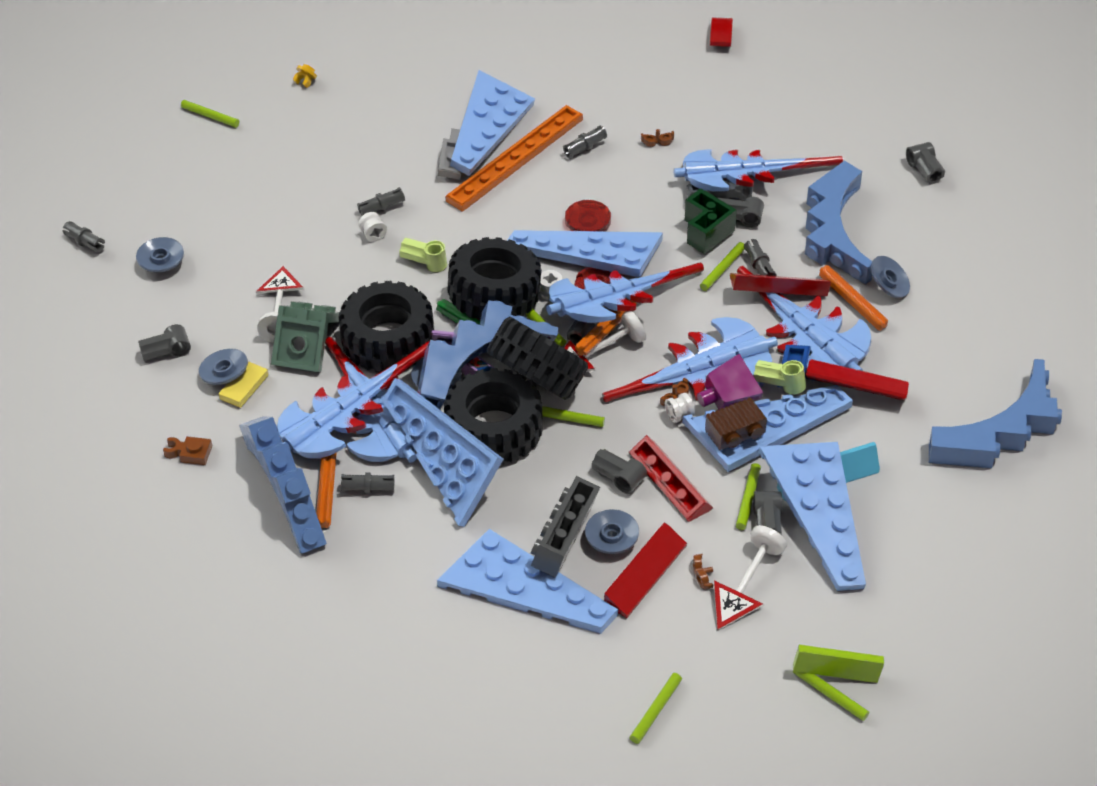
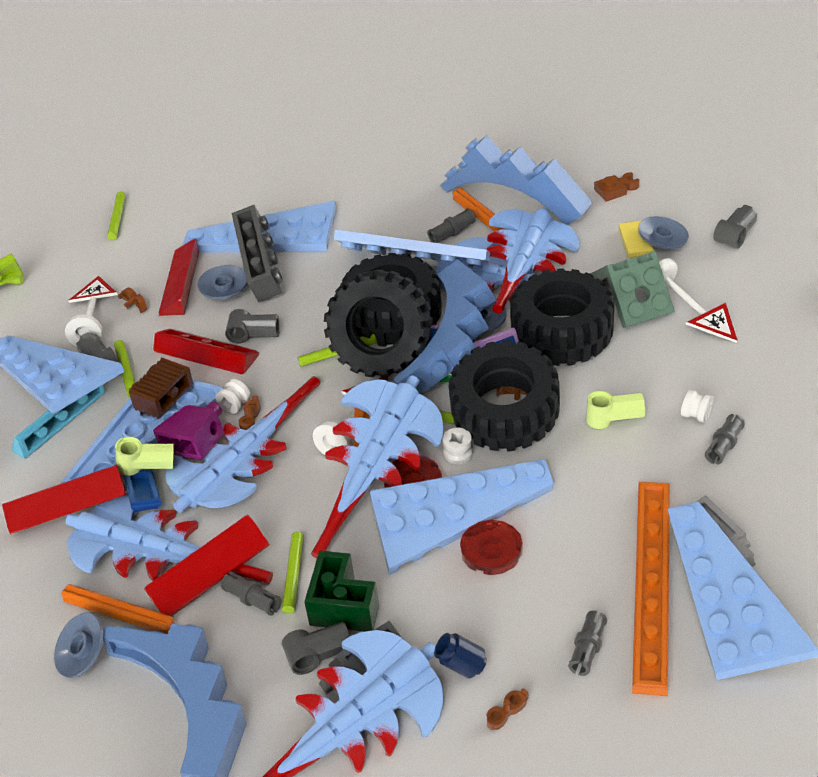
camera: 150 degrees right, 5 degrees down
(663, 160) = (460, 655): none -> dark blue brick

